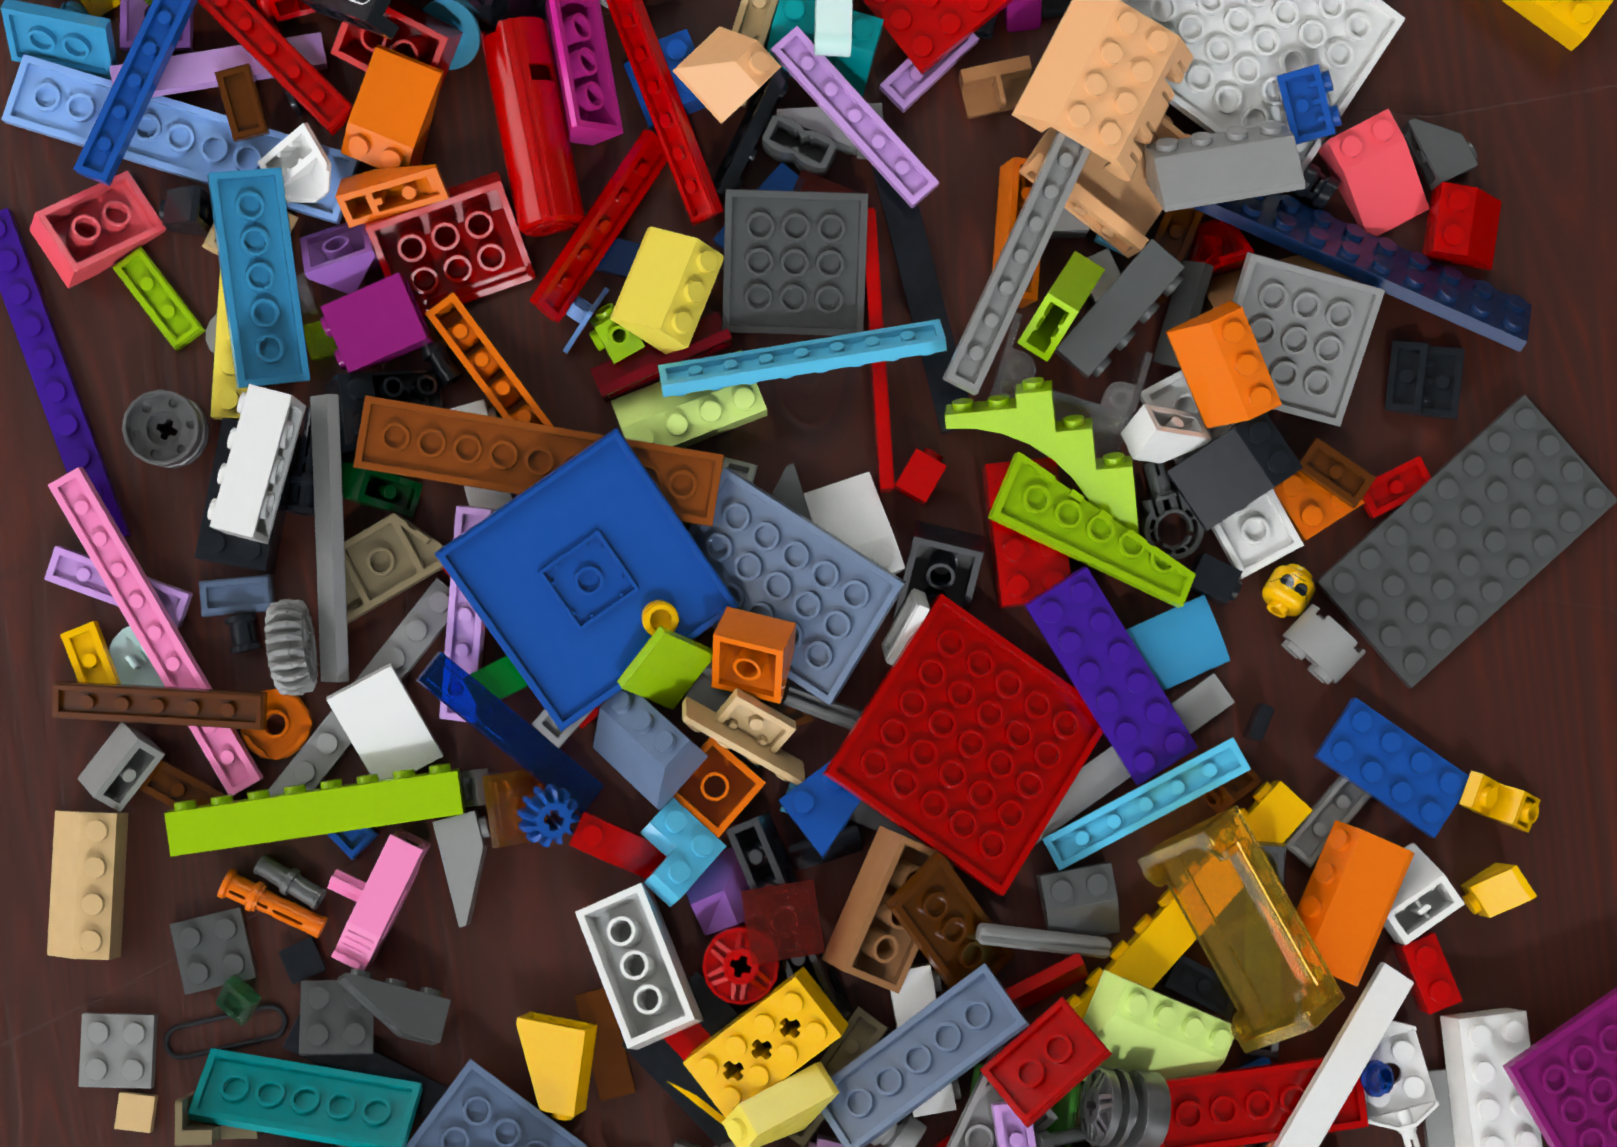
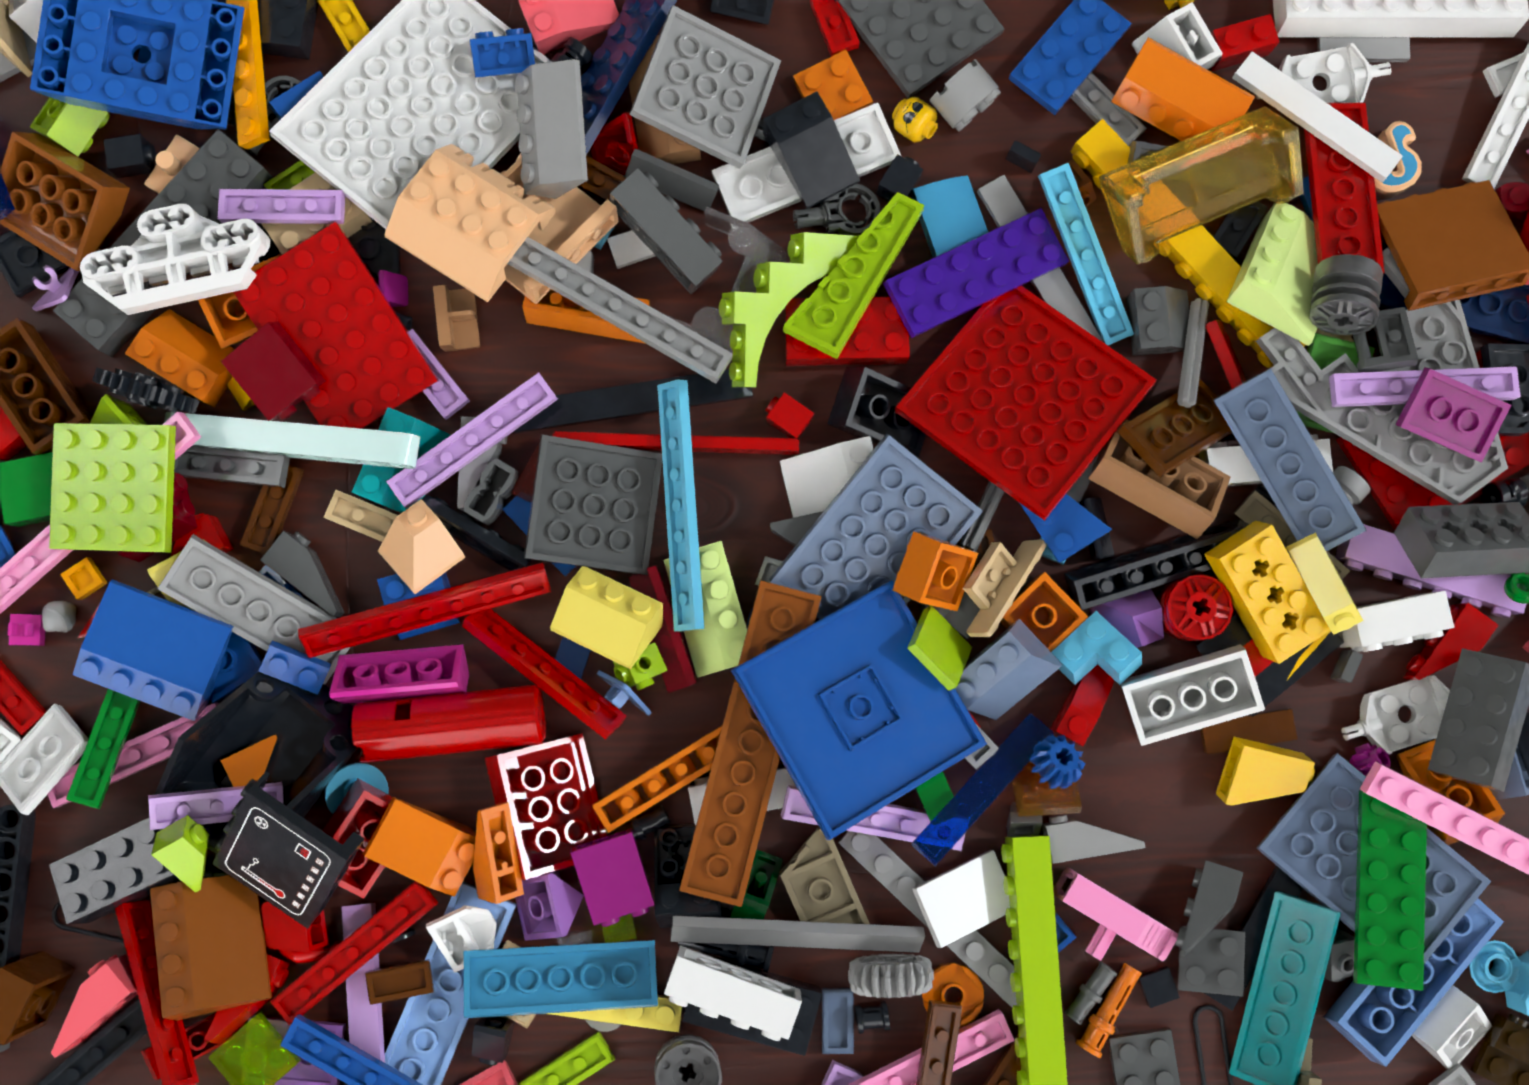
camera: 80 degrees left, 0 degrees up
(238, 1000) = (1190, 1046): clear green plate -> none
(659, 614) = (895, 649): yellow tile -> none
(782, 922) = (1166, 568): clear red plate -> none
(906, 623) = (918, 441): white tile -> none
(1045, 1062) = (1304, 356): red tile -> none
(1061, 306) = (657, 279): lime brick -> none
(1163, 433) = (775, 205): white slope -> none
(1223, 366) = (725, 145): orange slope -> none
(1335, 472) = (821, 67): reddish brown plate -> none
(1377, 1078) = (1328, 90): clear blue plate -> none

